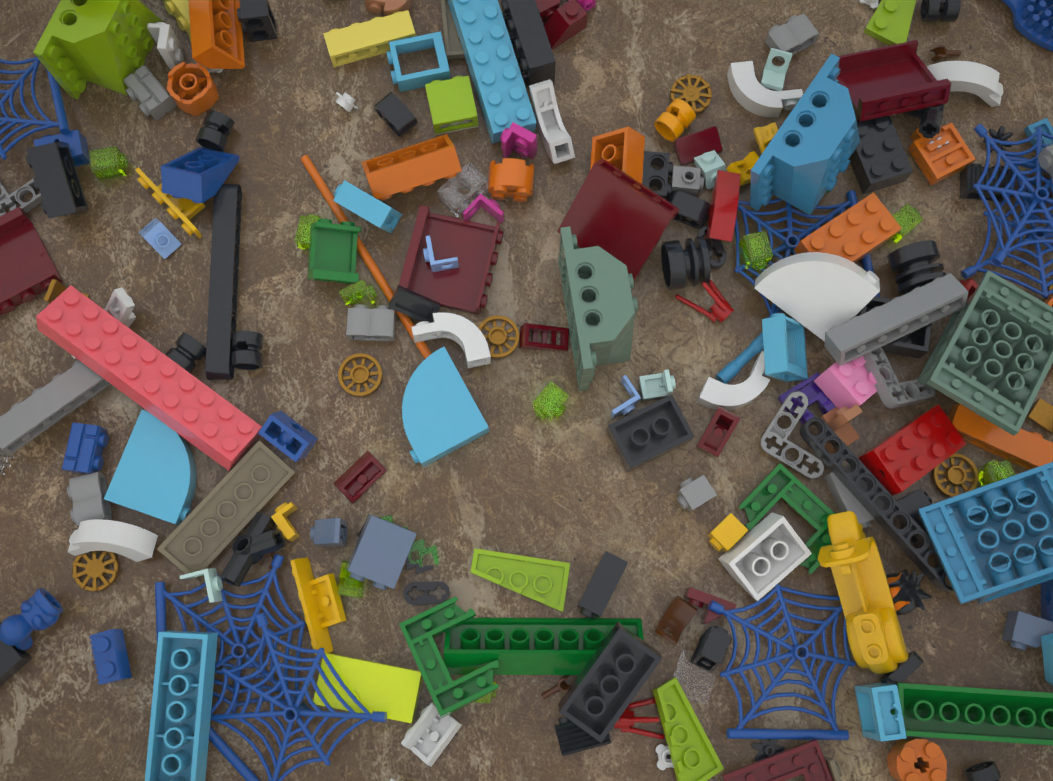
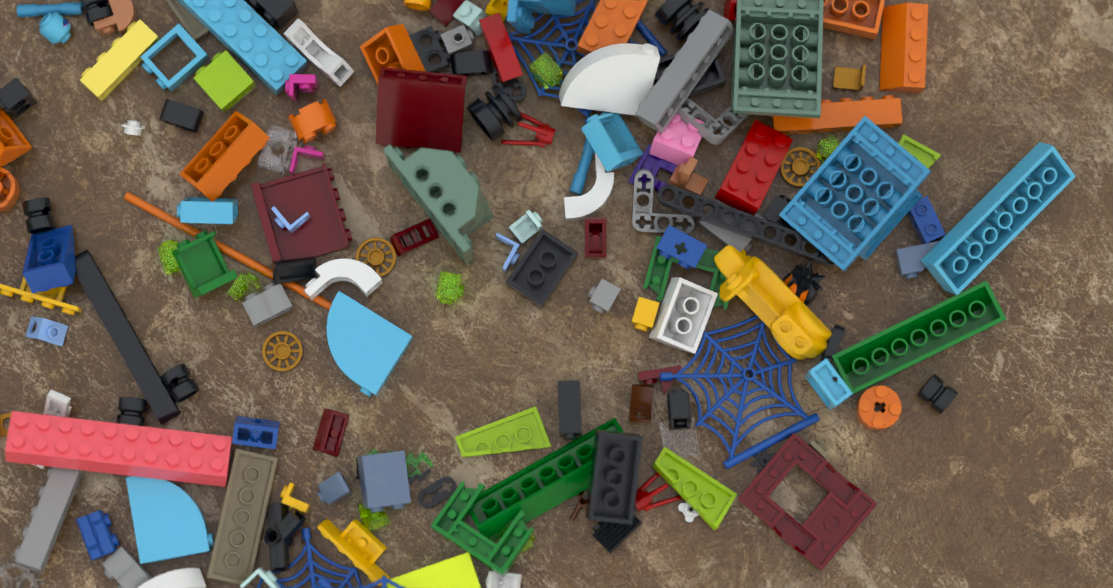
camera: 30 degrees left, 5 degrees up
(812, 493) = (674, 236): none -> blue brick

